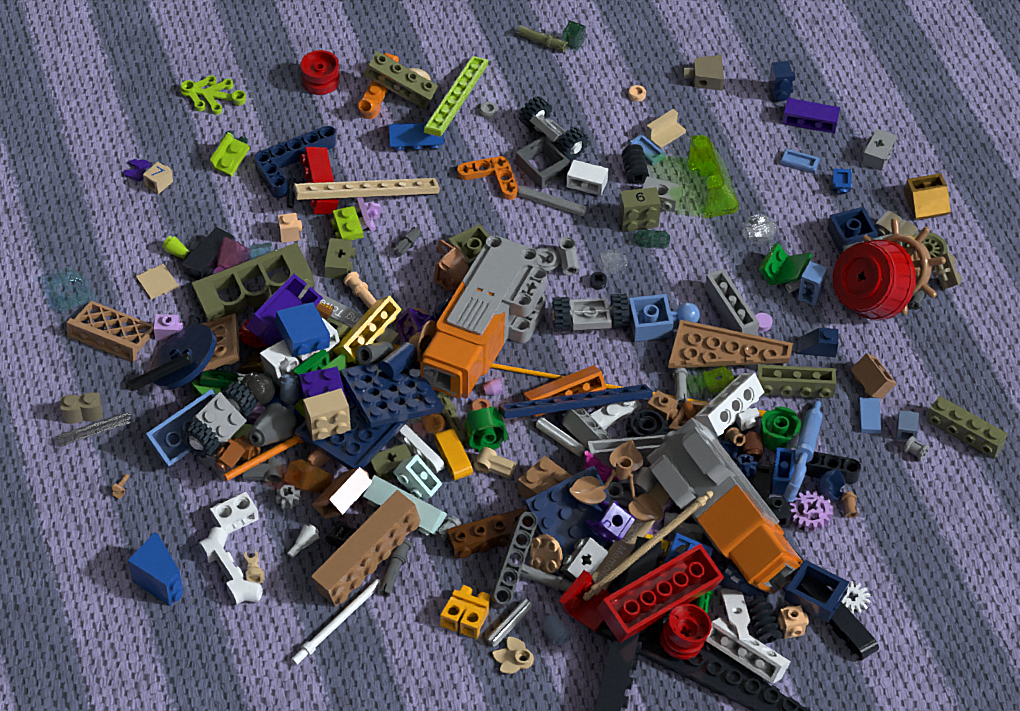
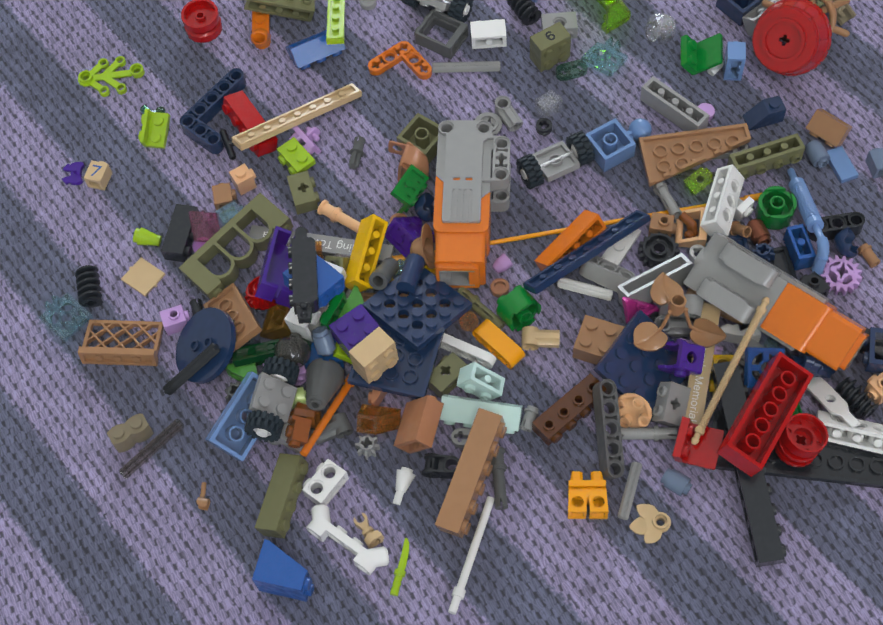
camera: 15 degrees left, 10 degrees up
(103, 271) = (88, 286): none -> black piece
(190, 508) = (282, 495): none -> olive brick
(264, 234) = (223, 194): none -> medium nougat brick
(265, 612) = (400, 571): none -> lime piece
(293, 318) = (304, 276): none -> black hinge
(436, 287) = (409, 188): none -> green bracket
(678, 238) = (599, 62): none -> clear light blue piece
(850, 397) = (817, 154): none -> sand blue brick

